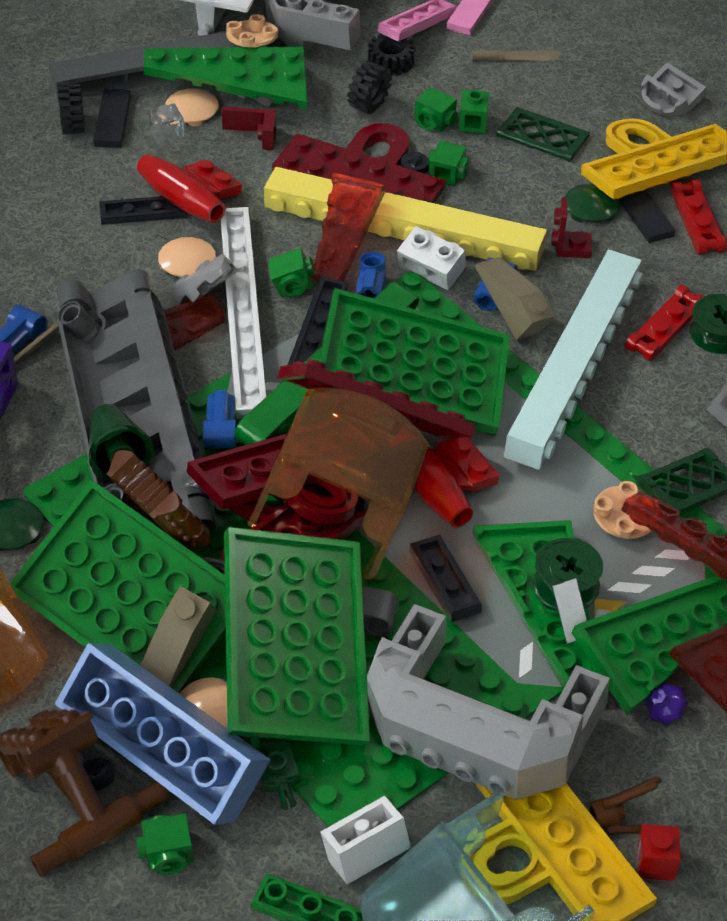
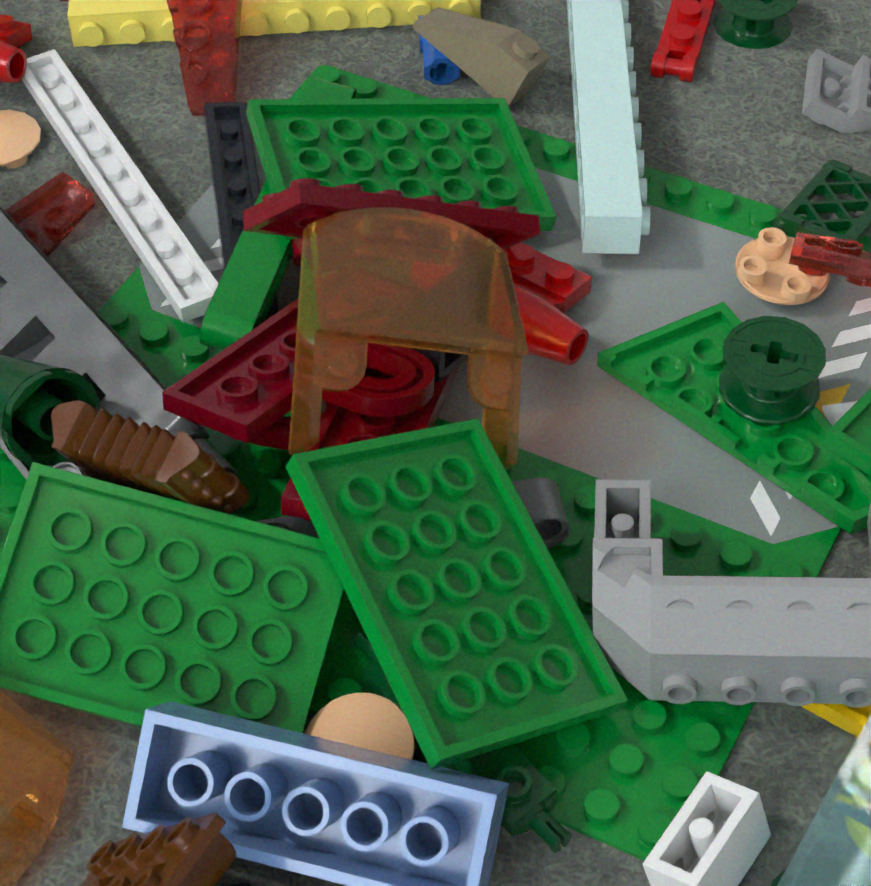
camera: 20 degrees left, 0 degrees up
(177, 635) = (272, 648): dark tan slope -> none
(206, 277) = (41, 155): light grey slope -> none
(220, 422) = (165, 335): blue piece -> none
(292, 273) = (162, 111): green brick -> none
(372, 274) = (272, 76): blue piece -> none
(432, 257) = (342, 38): white brick -> none
(445, 578) = (595, 435): black tile -> none
(569, 606) = (806, 411): white sticker -> none

